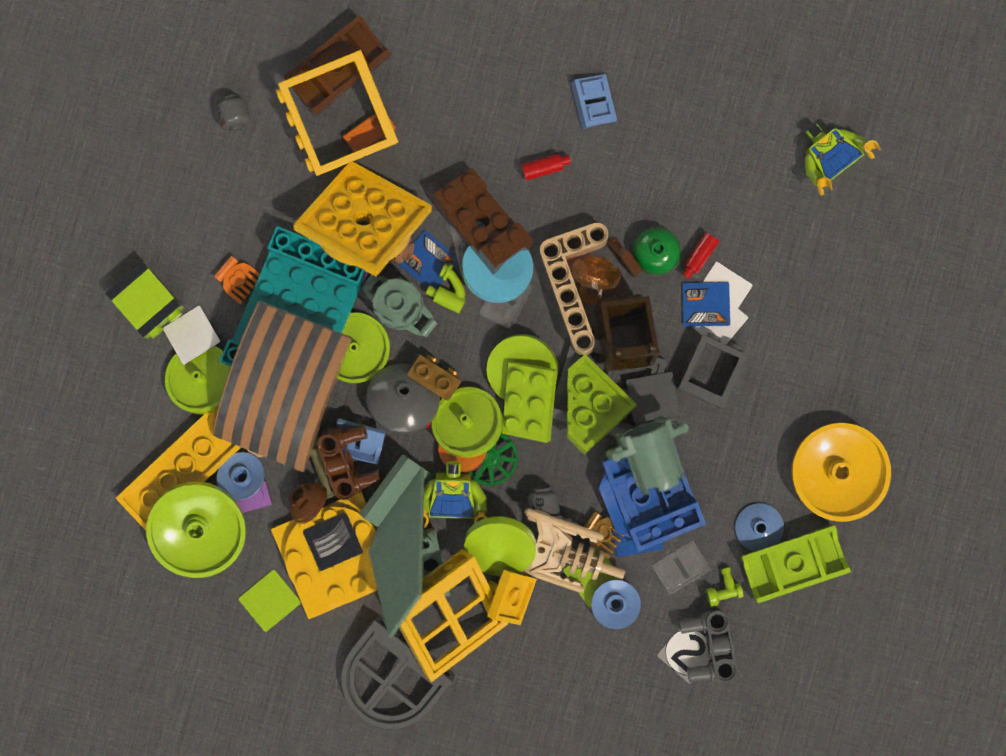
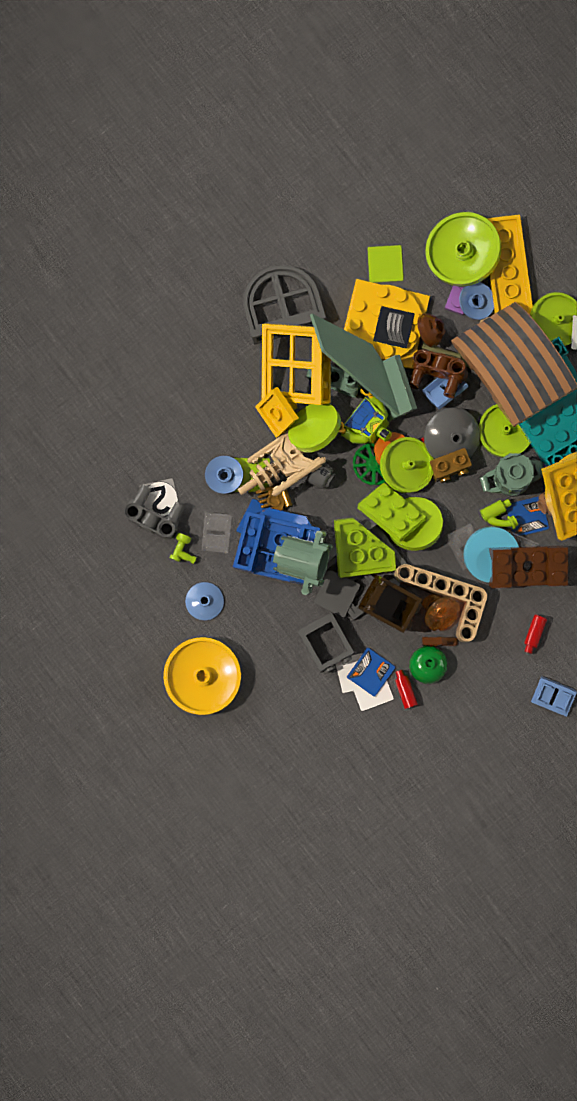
camera: 125 degrees right, 5 degrees down
(794, 564) = (165, 605): lime piece -> none
(834, 154) = (407, 822): torso -> none

